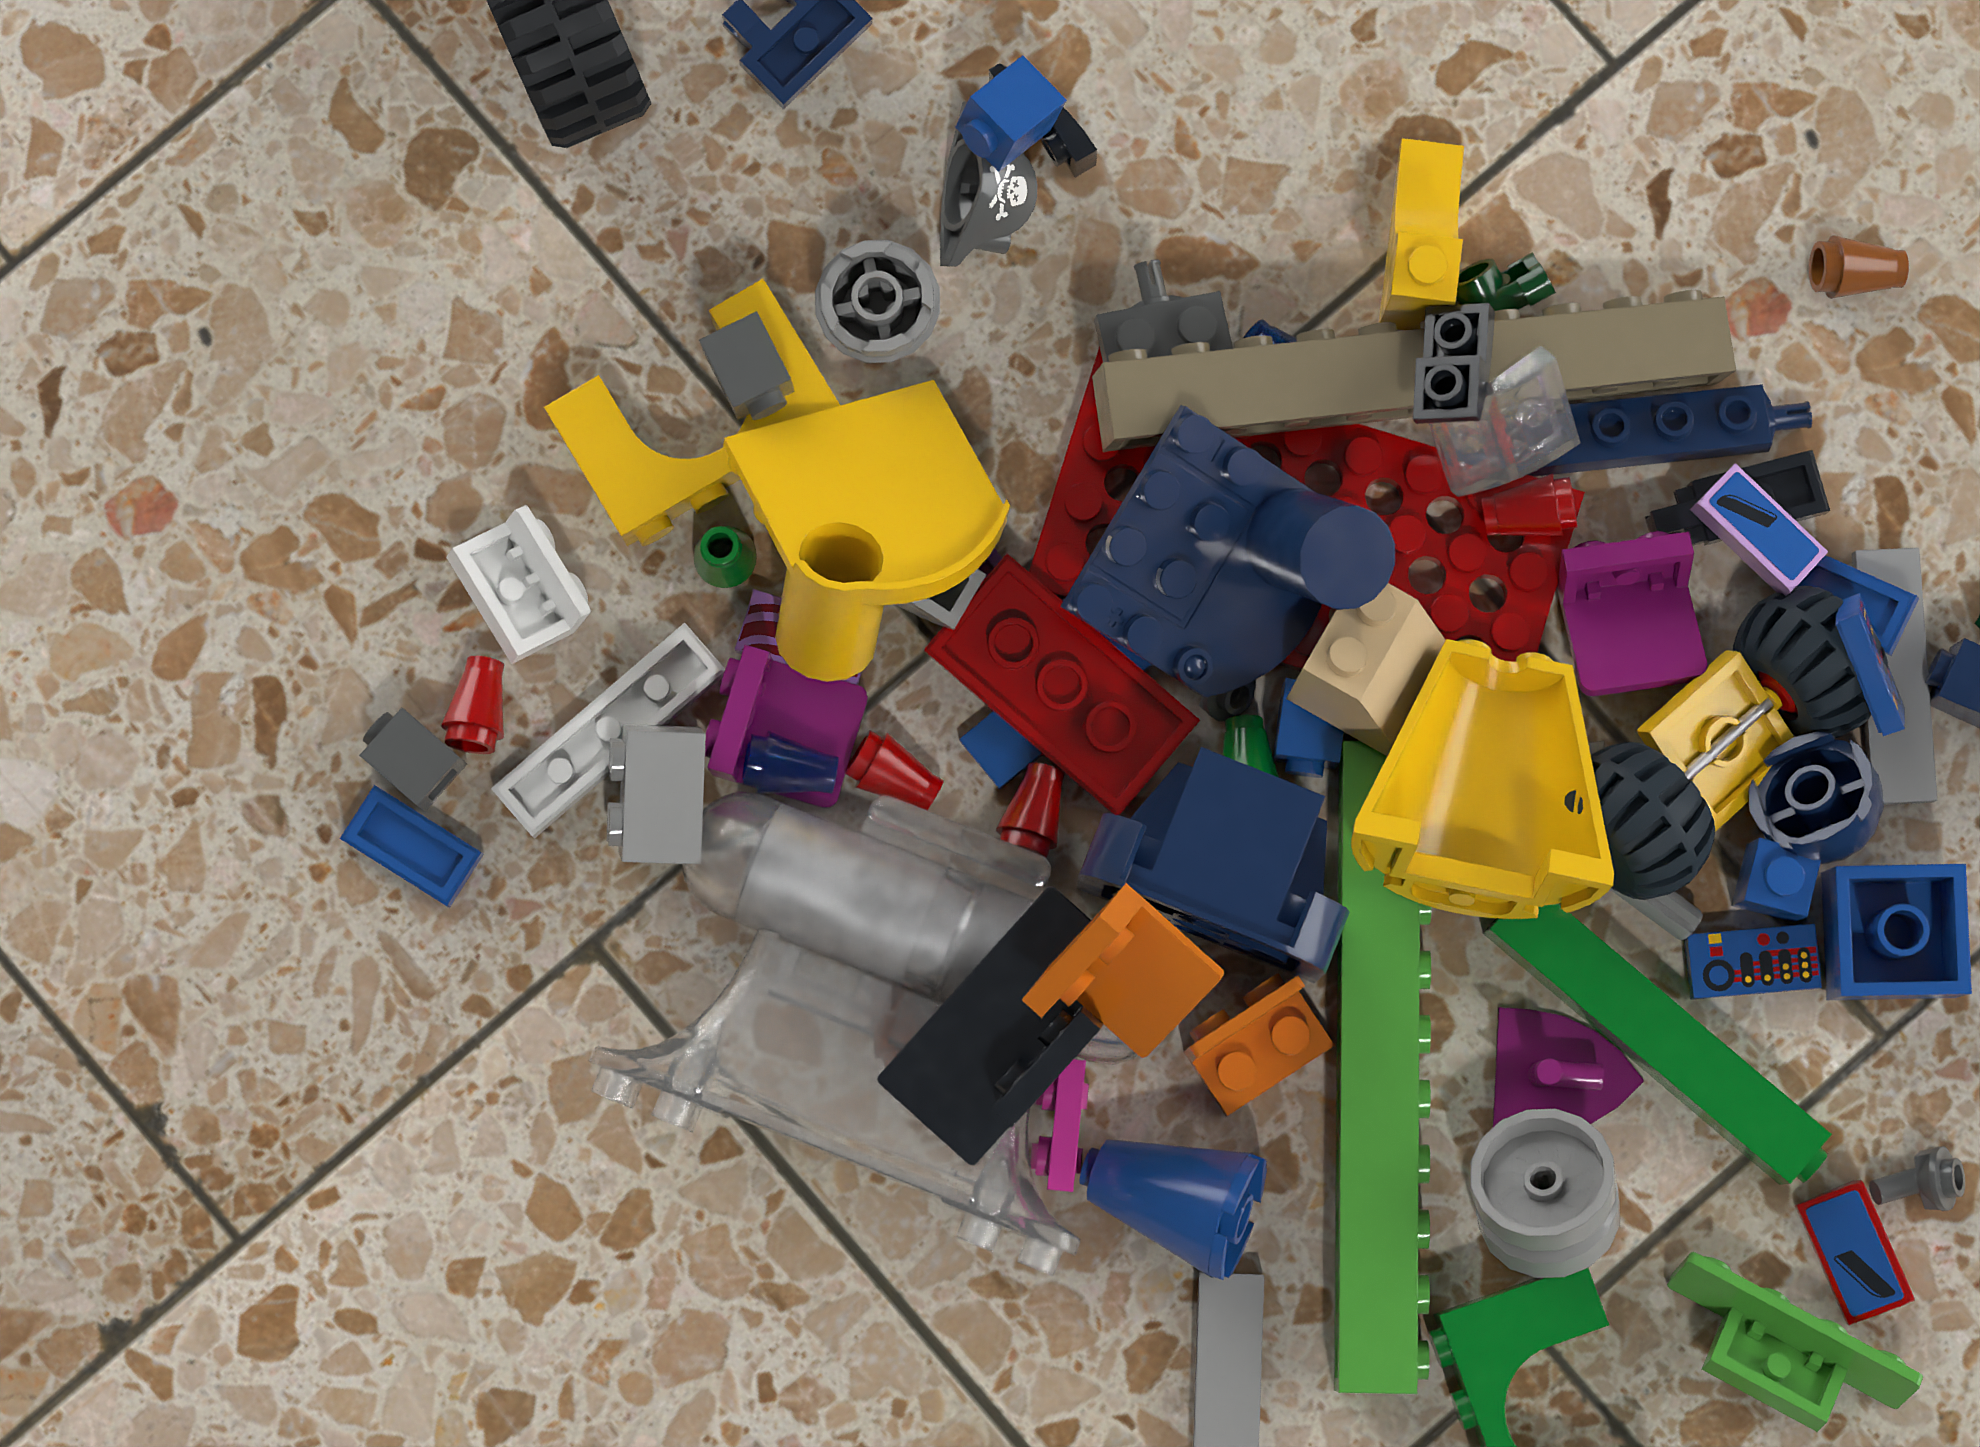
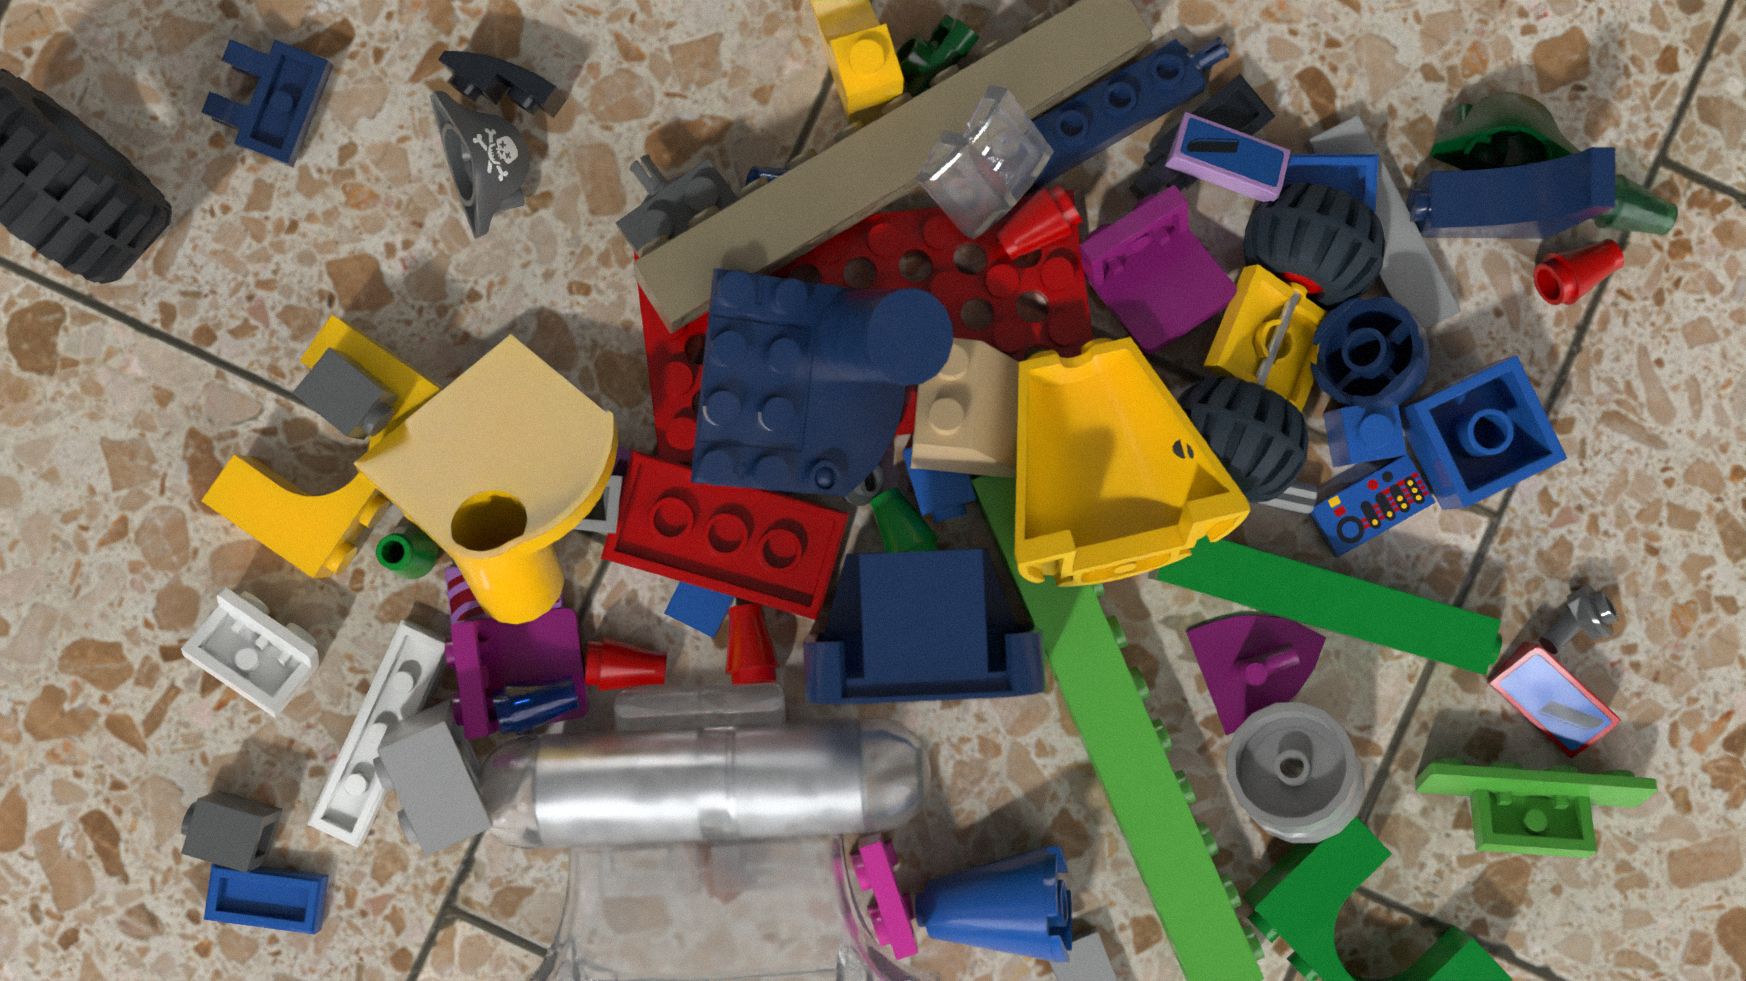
camera: 25 degrees left, 5 degrees up
(476, 710) = (265, 765): red cone -> none
(877, 301) = (433, 291): light grey cone -> none
(984, 1048) = (809, 845): black bracket -> none
(1010, 114) = (466, 87): blue brick -> none
(1129, 973) = (884, 769): orange bracket -> none
(1259, 1045) = (1010, 752): orange bracket -> none
(1454, 364) = (925, 132): black slope -> none
(1872, 674) = (1368, 228): blue tile -> none

